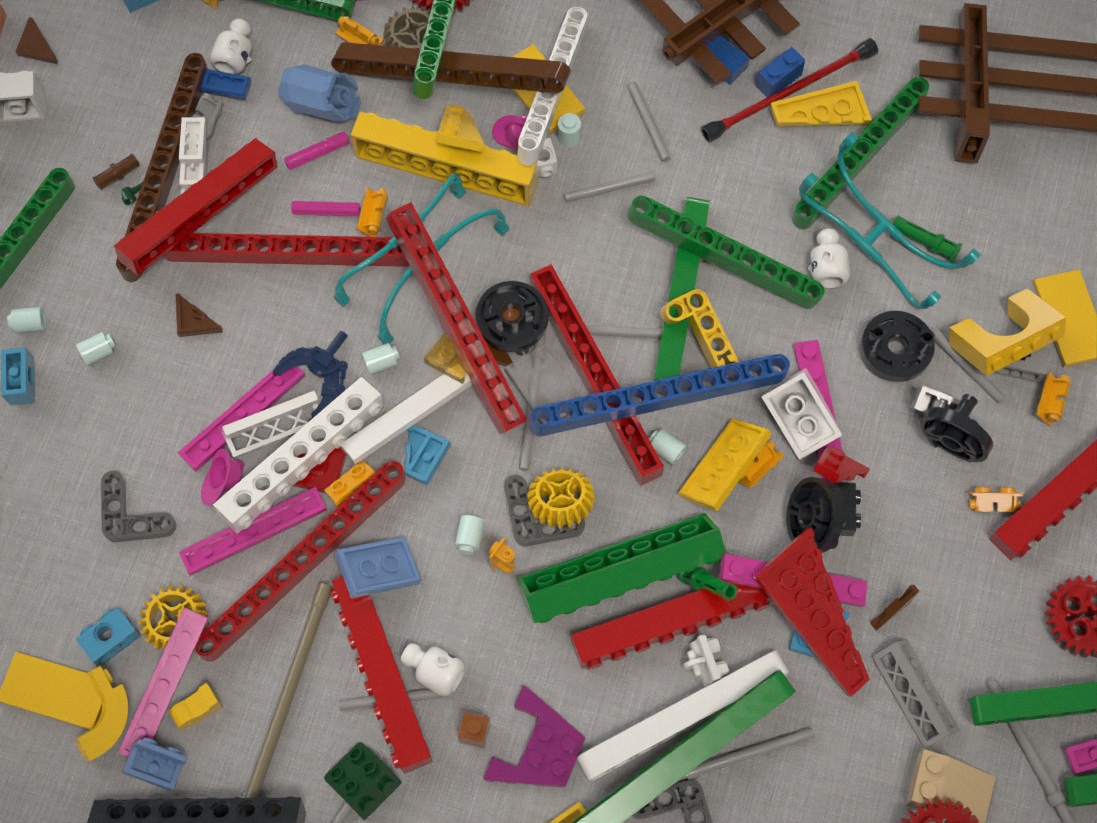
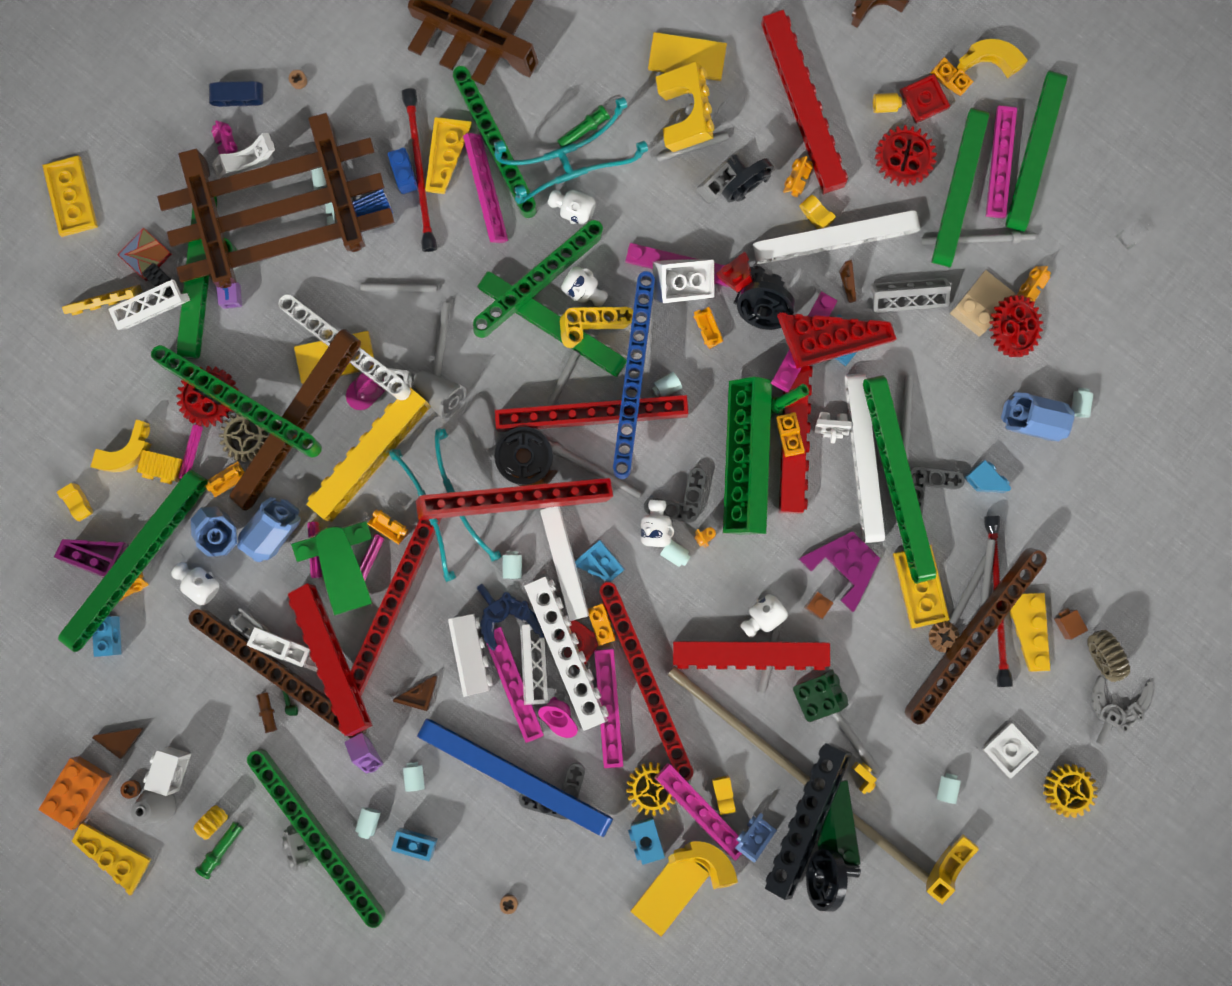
camera: 65 degrees left, 15 degrees up
(103, 283) = (363, 753): none -> medium lavender slope
(131, 459) = (515, 777): none -> blue beam
(225, 84) = (225, 600): blue plate -> none
(256, 349) = (469, 654): none -> white slope
(295, 40) = (213, 531): none -> medium blue brick
(309, 176) = (338, 563): none -> green slope
(378, 567) = (675, 628): medium blue tile -> none
(445, 359) = (534, 518): clear yellow wing -> none
(459, 129) = (353, 434): yellow wing -> none
(491, 497) = (656, 527): none -> white piece
(540, 380) = (584, 454): clear tile -> none
(546, 206) = (439, 393): none -> light grey cone
(560, 490) = (683, 473): yellow gear -> none
(569, 130) = (382, 350): light aqua brick -> none
(670, 607) = (790, 434): none -> light orange slope
(724, 464) = (698, 351): yellow tile -> none
(740, 307) = (582, 285): none -> white piece
(800, 165) = (485, 188): none -> dark pink plate
(917, 341) = (666, 175): black piece -> none
(944, 575) = (836, 237): none -> white beam
(960, 539) = (816, 212): none -> yellow leg
(1050, 408) = (736, 95): light orange hinge -> none

